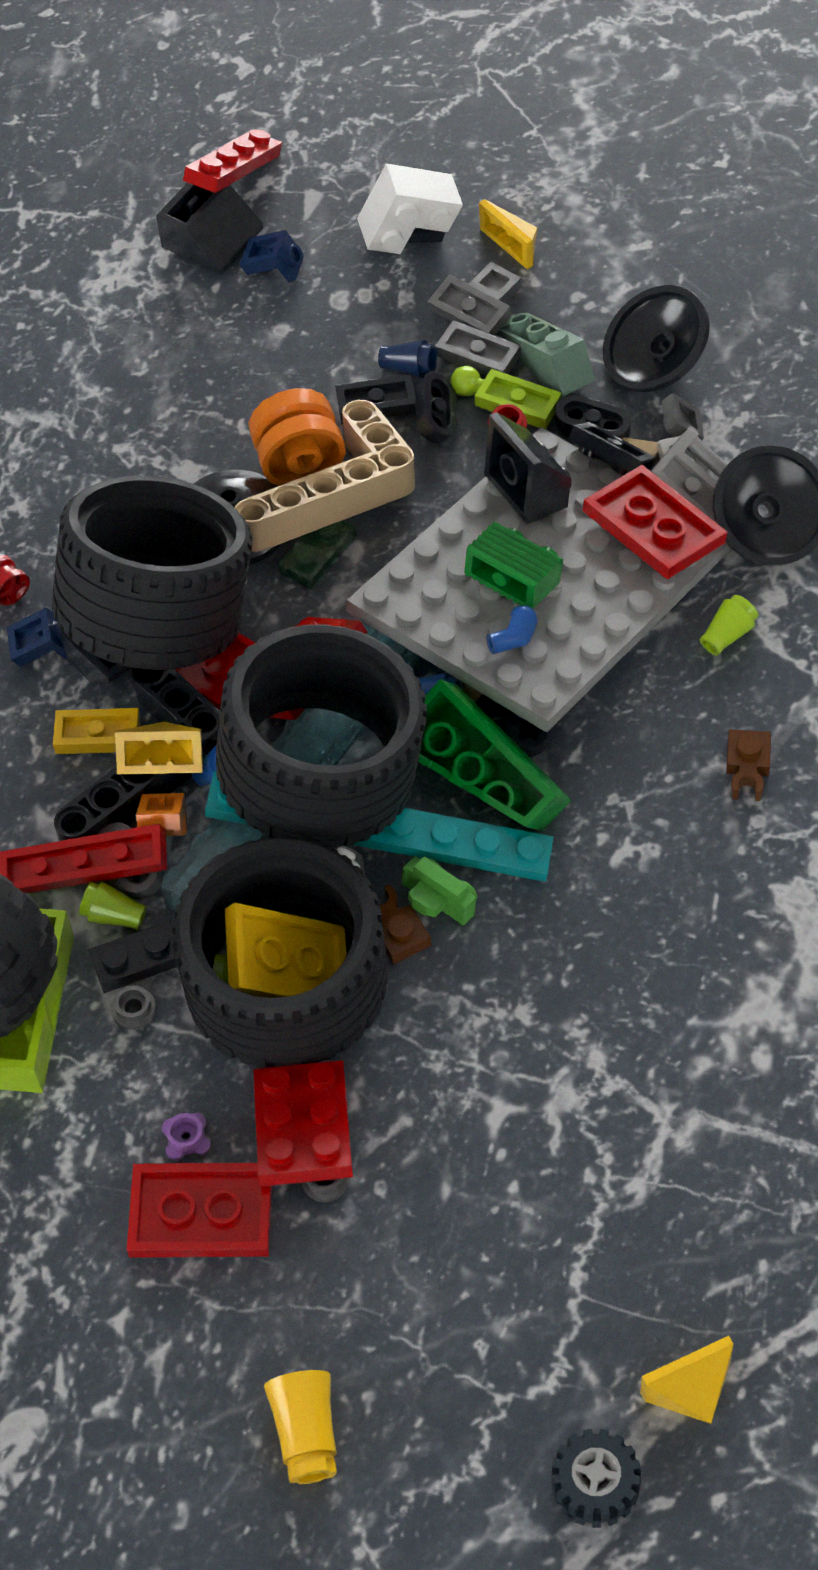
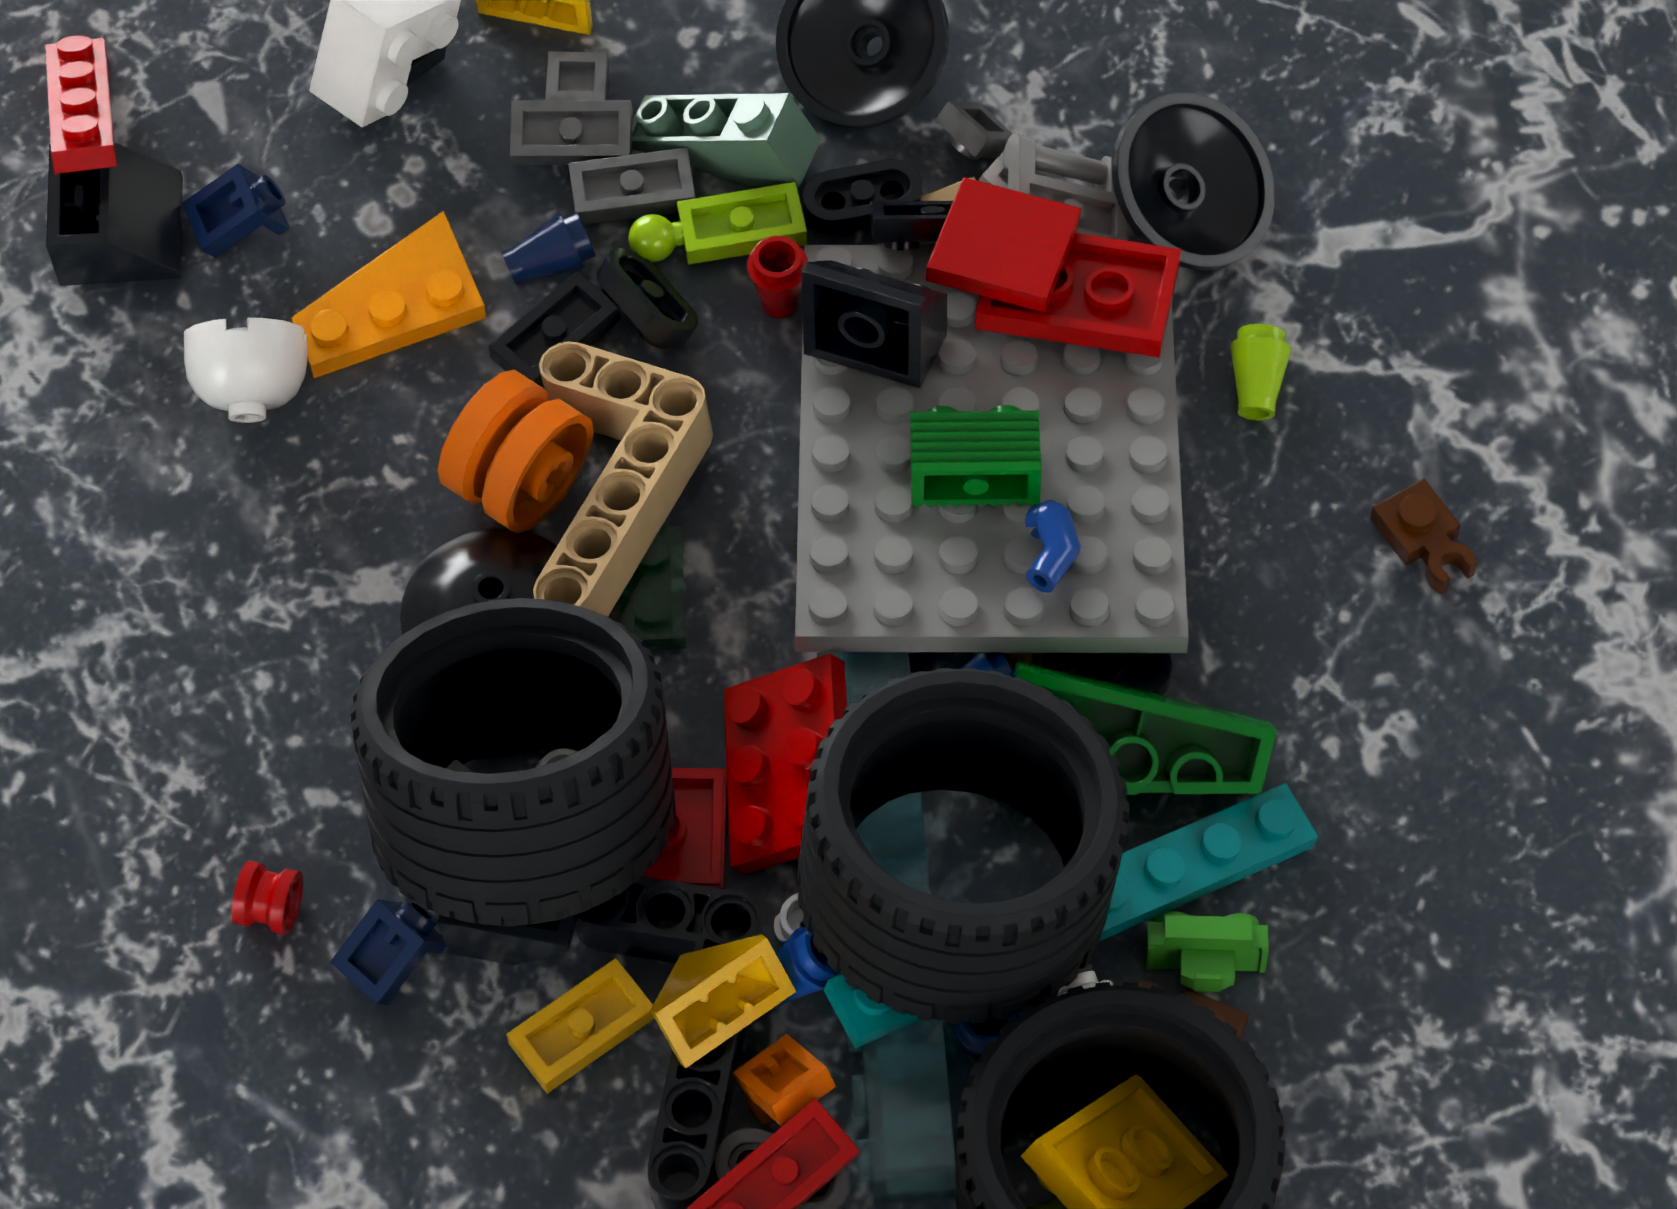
camera: 40 degrees left, 5 degrees up
(208, 328) = (246, 366): none -> white cylinder
(312, 342) = (393, 301): none -> light orange wing
(628, 473) = (1003, 244): none -> red tile

